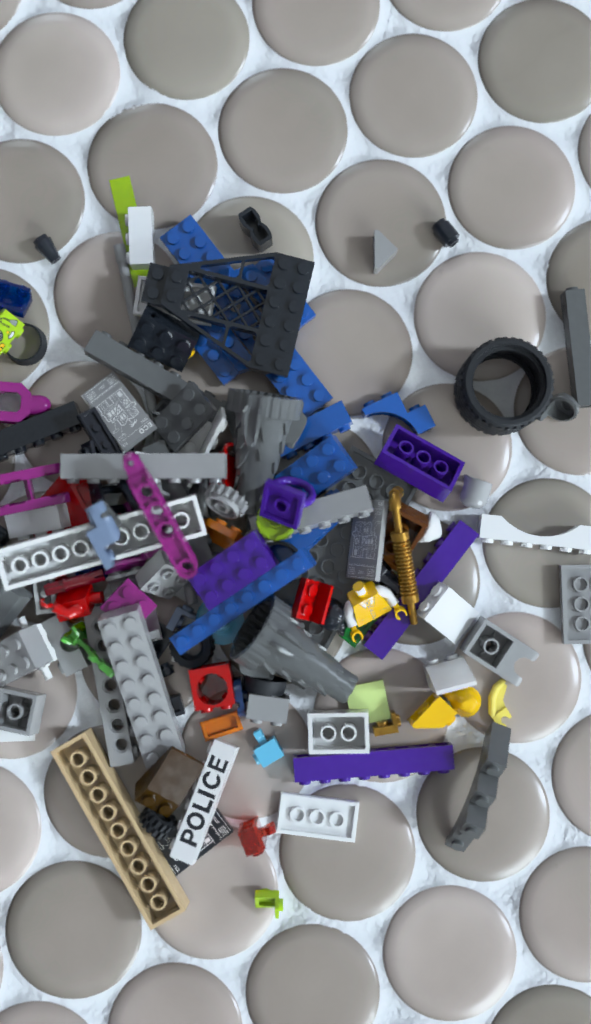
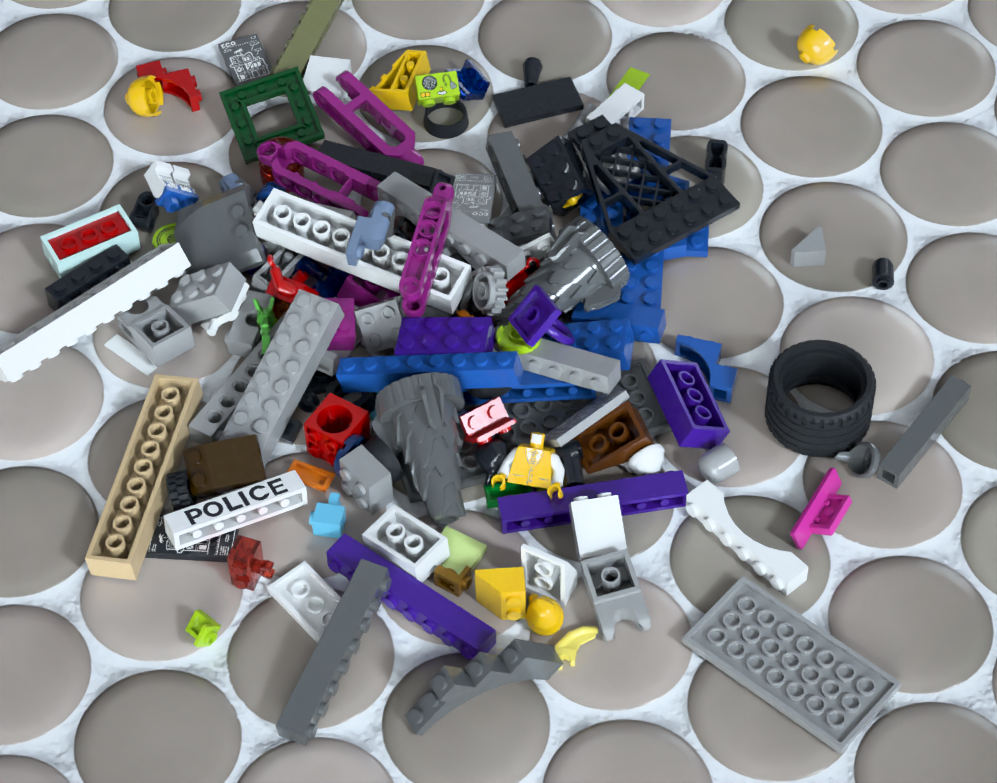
camera: 45 degrees right, 35 degrees down
(73, 582) = (307, 278): dark red axle -> none
(75, 272) = (537, 102): none -> black tile
(229, 54) = (815, 46): none -> yellow cylinder
(369, 850) = (333, 652): none -> dark grey brick
(403, 556) = (600, 446): pearl gold piece -> none
(569, 469) = (823, 511): none -> dark pink bracket

